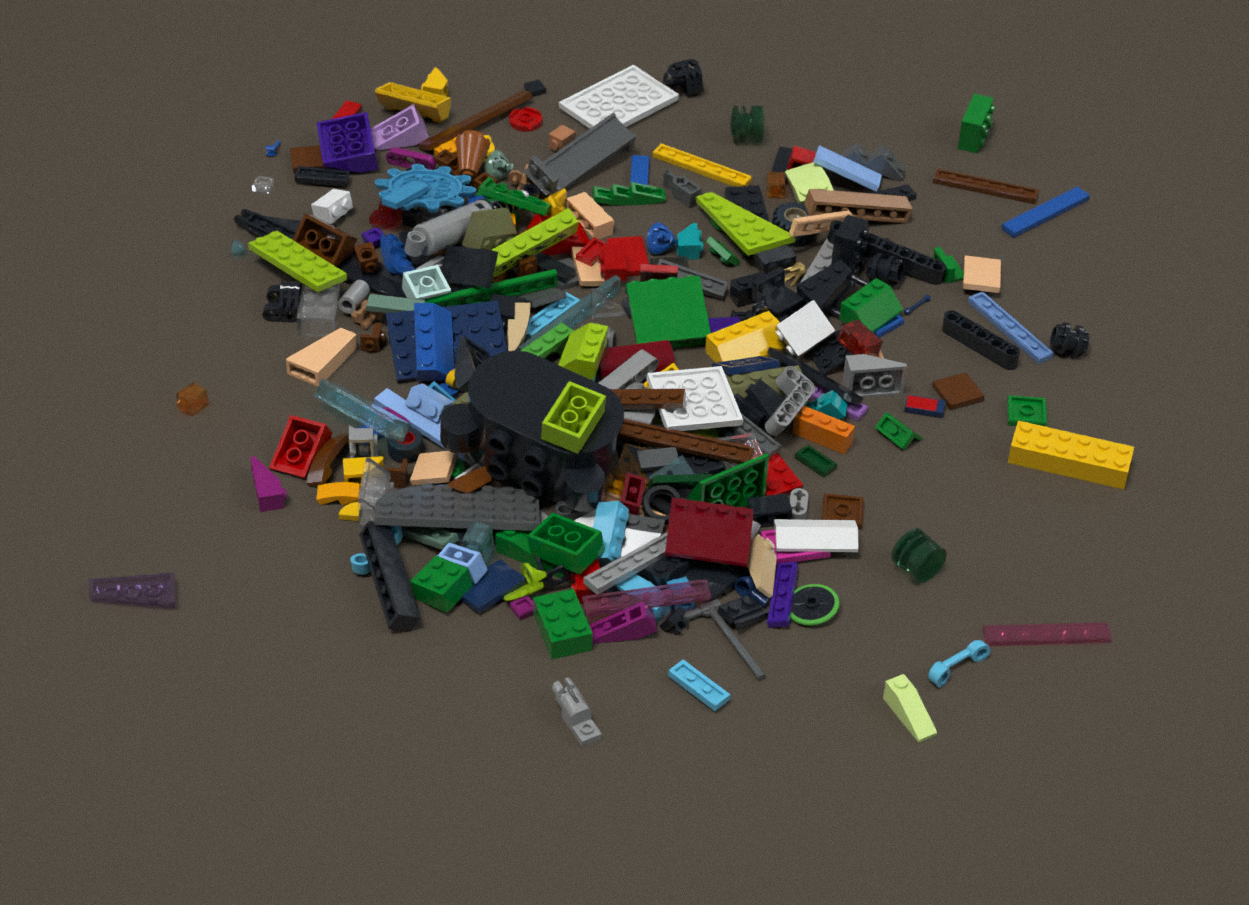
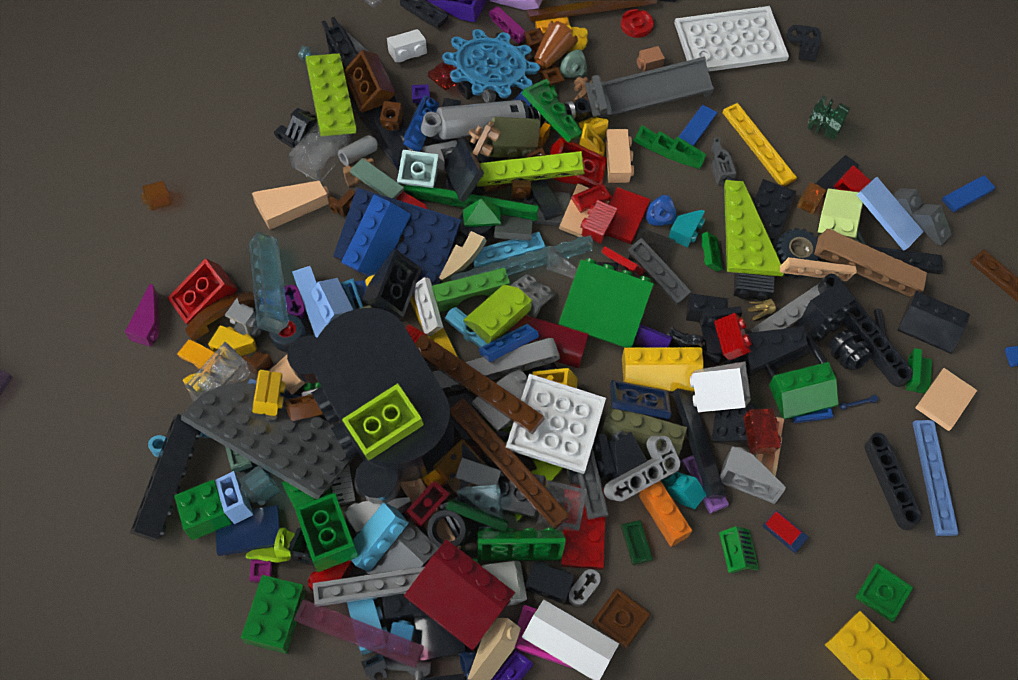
camera: 30 degrees right, 20 degrees up
(405, 194) = (461, 66): dark azure tile -> none
(432, 479) = (267, 393): none -> yellow brick
(476, 224) = (488, 132): none -> medium nougat hips
(509, 293) = (481, 214): none -> green slope
(610, 365) = (508, 342): none -> blue tile
(625, 625) = (325, 647): magenta slope -> none
(789, 289) = (733, 336): none -> red brick
(898, 136) = (968, 193): none -> blue tile
(934, 228) = (933, 322): none -> black slope
(958, 391) = (830, 530): reddish brown tile -> none
(1069, 339) = (979, 526): black piece -> none

